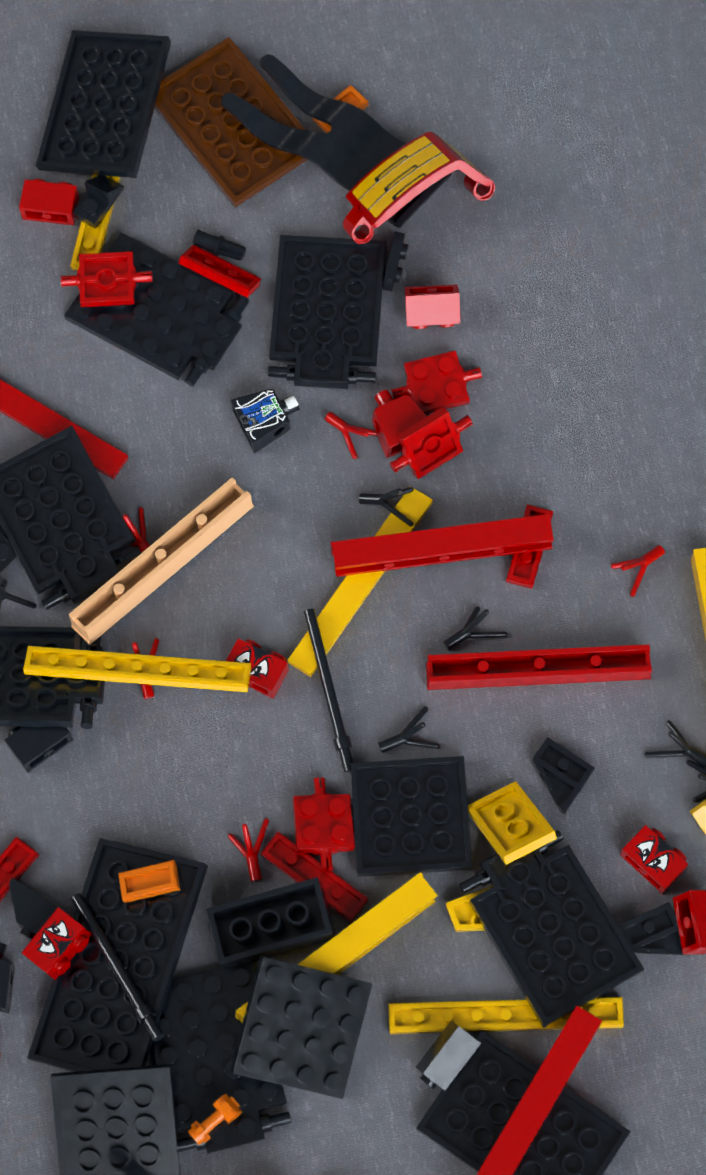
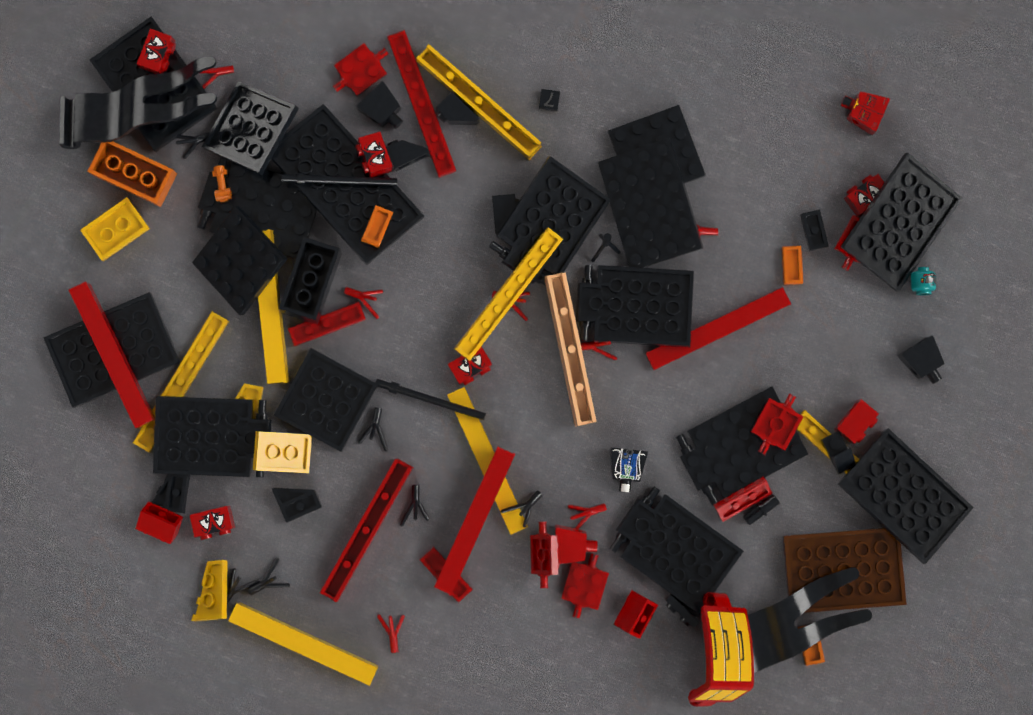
camera: 120 degrees right, 15 degrees up
(323, 824) = (352, 347): red plate -> none
(447, 1056) = (175, 333): brick -> none

